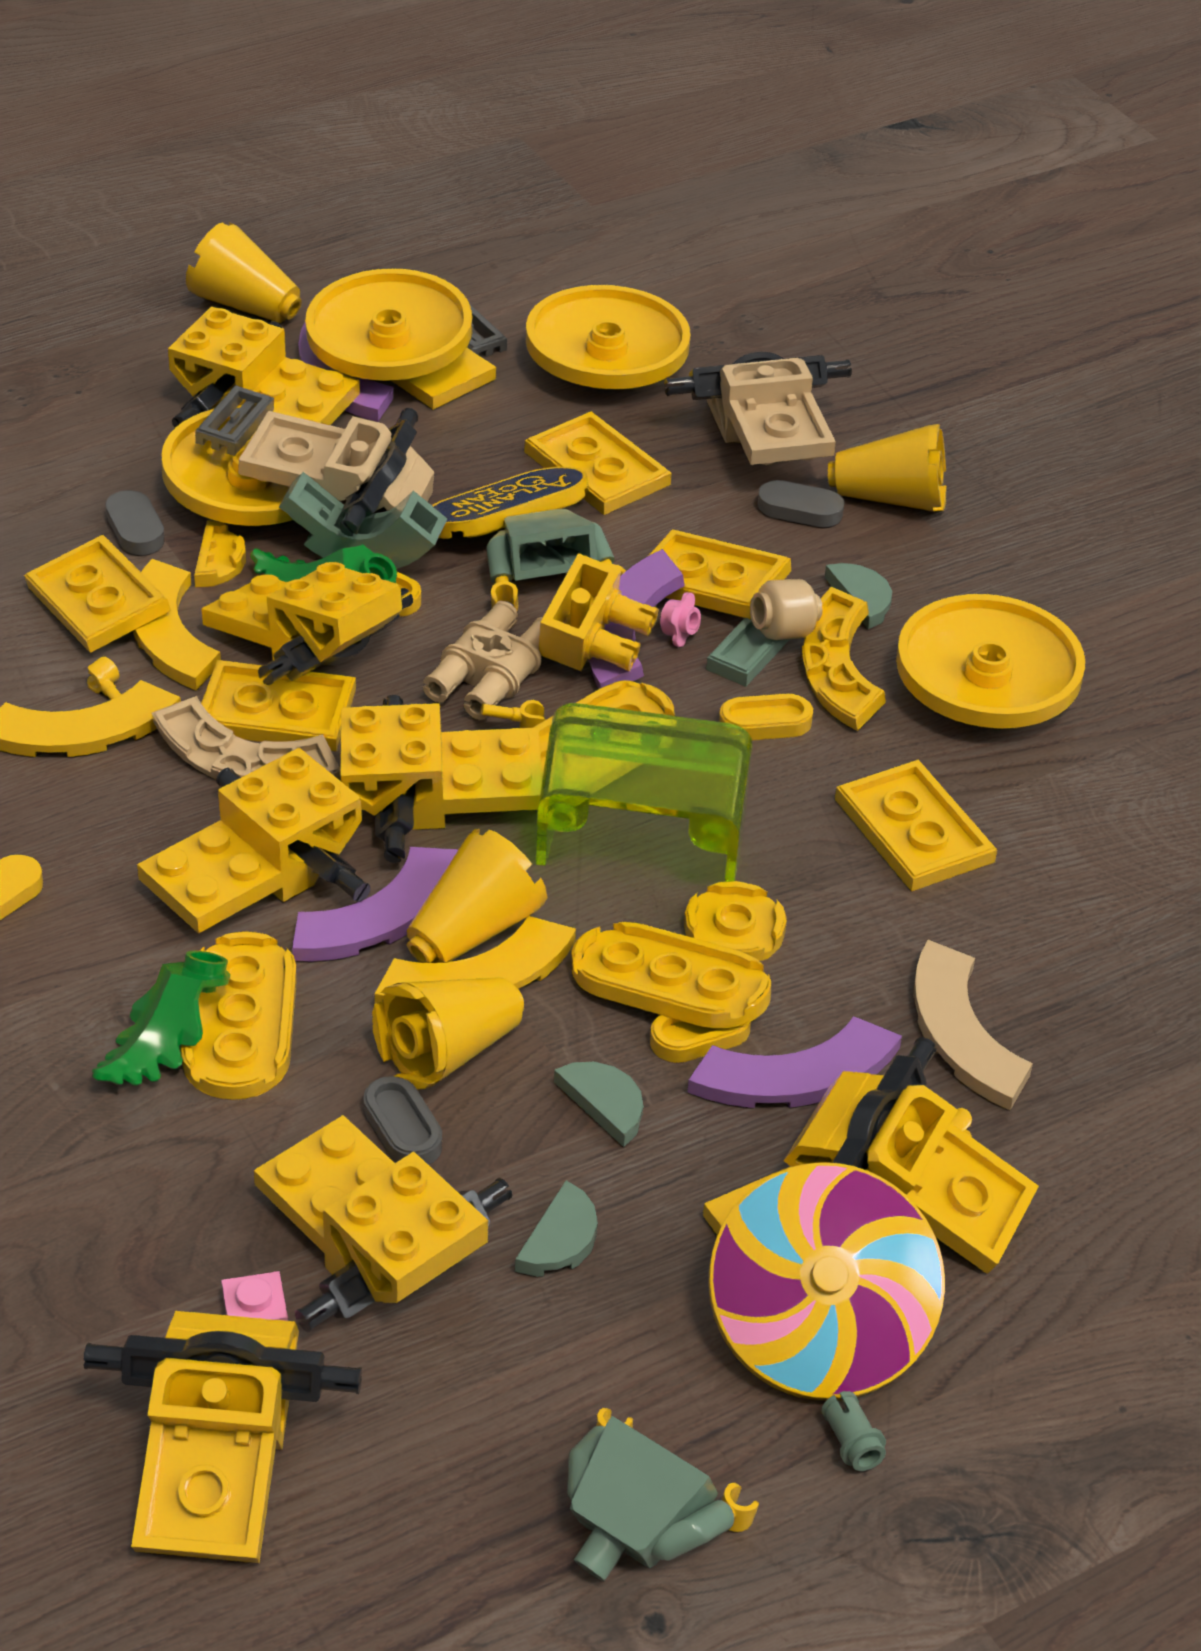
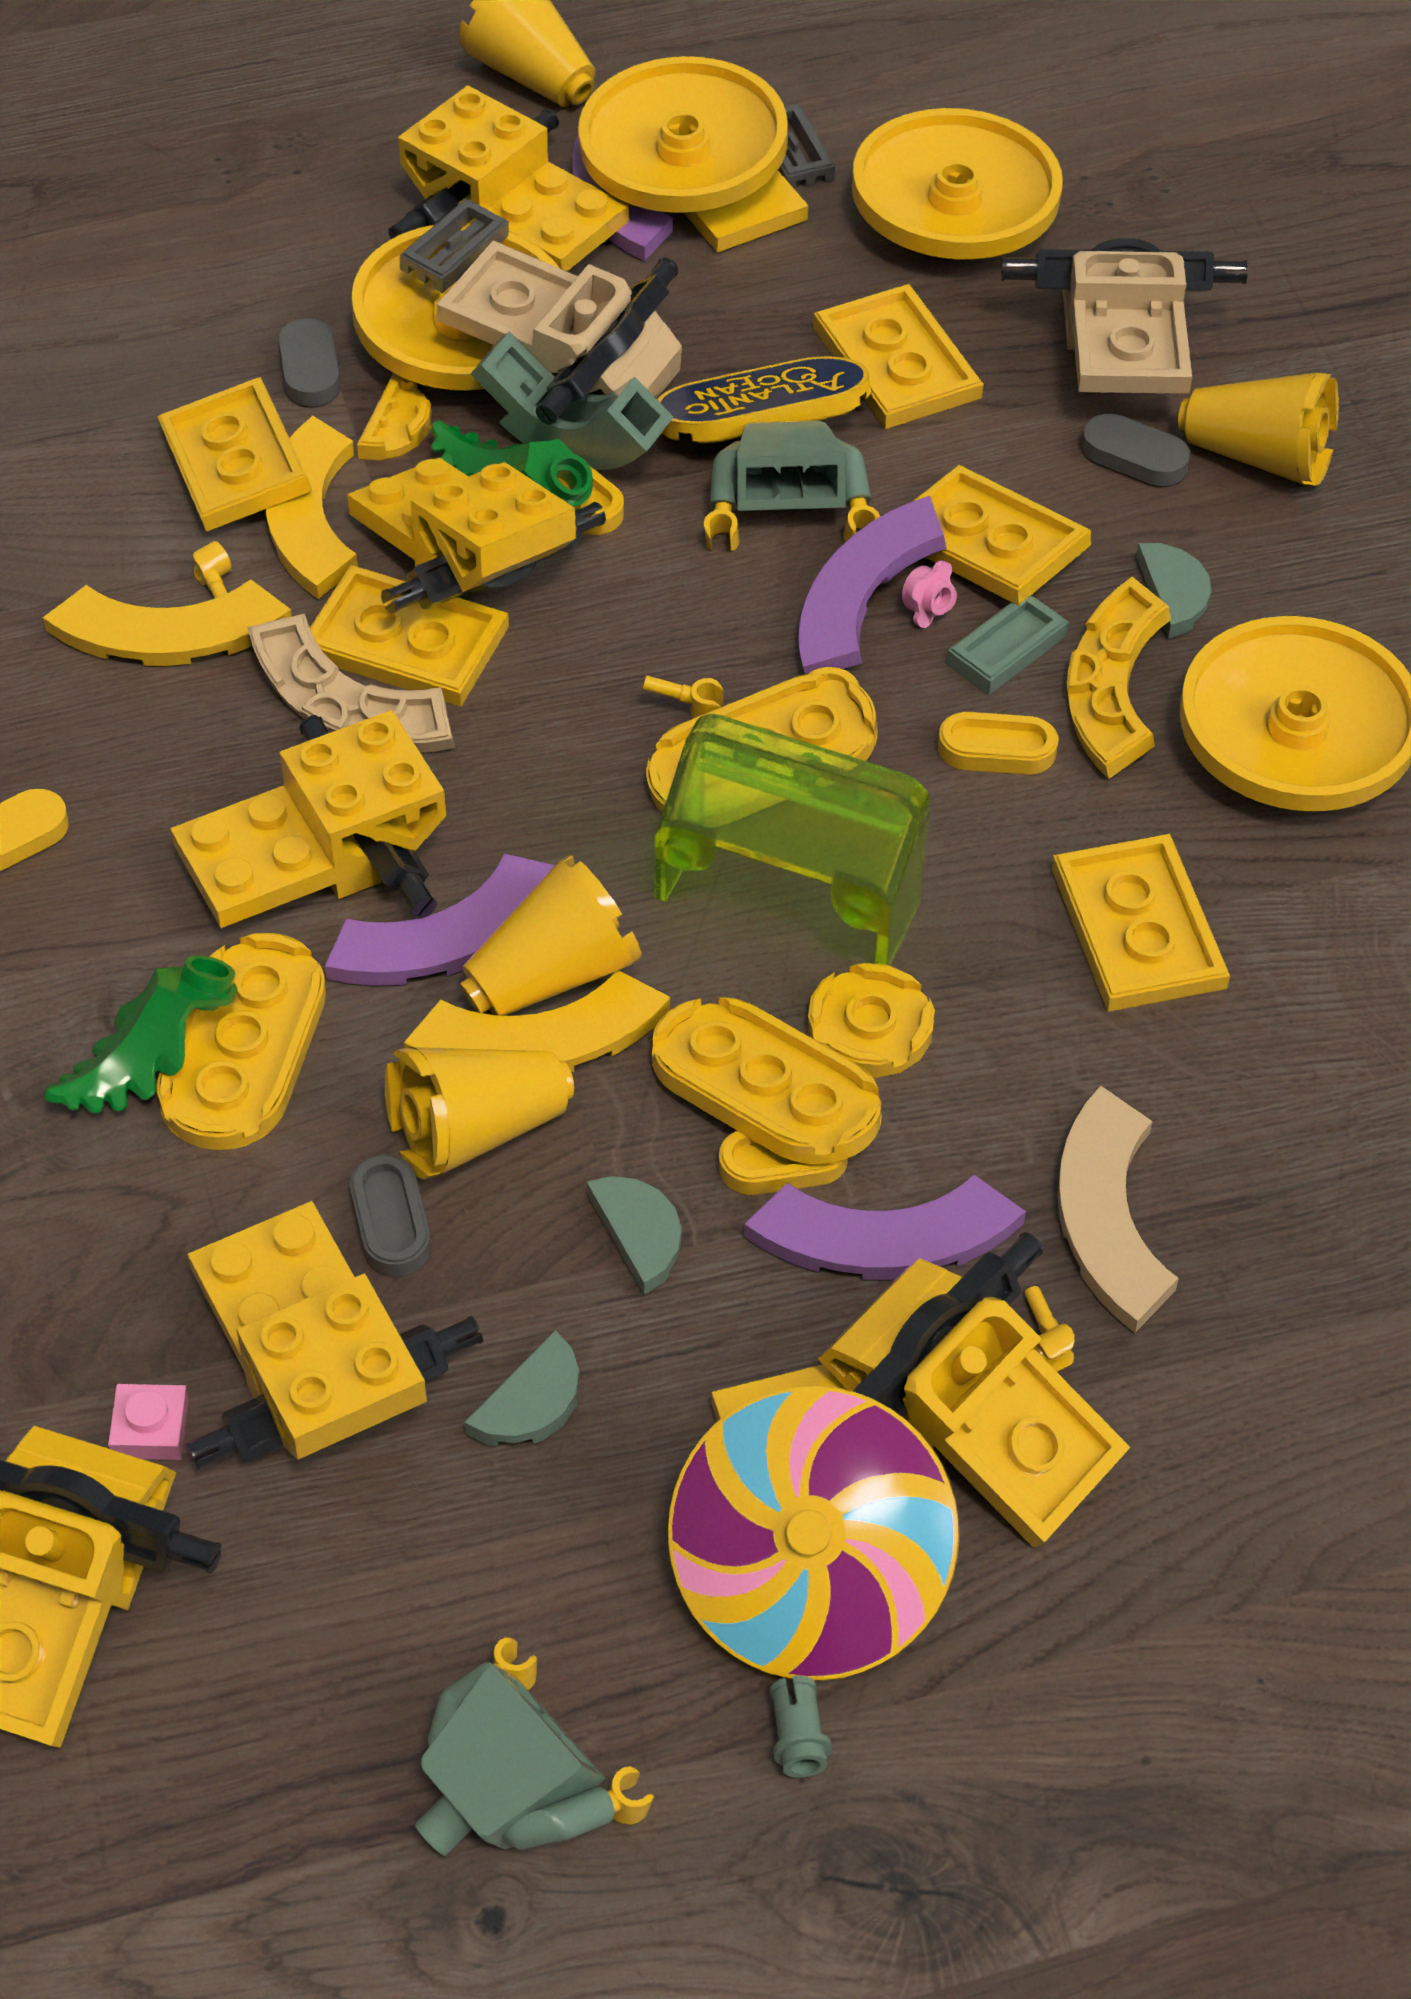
camera: 15 degrees right, 10 degrees up
(417, 774) = (534, 756): yellow piece -> none
(488, 660) = (678, 613): tan pin -> none
(581, 609) = (797, 569): yellow brick -> none
(785, 609) = (1059, 602): tan head -> none

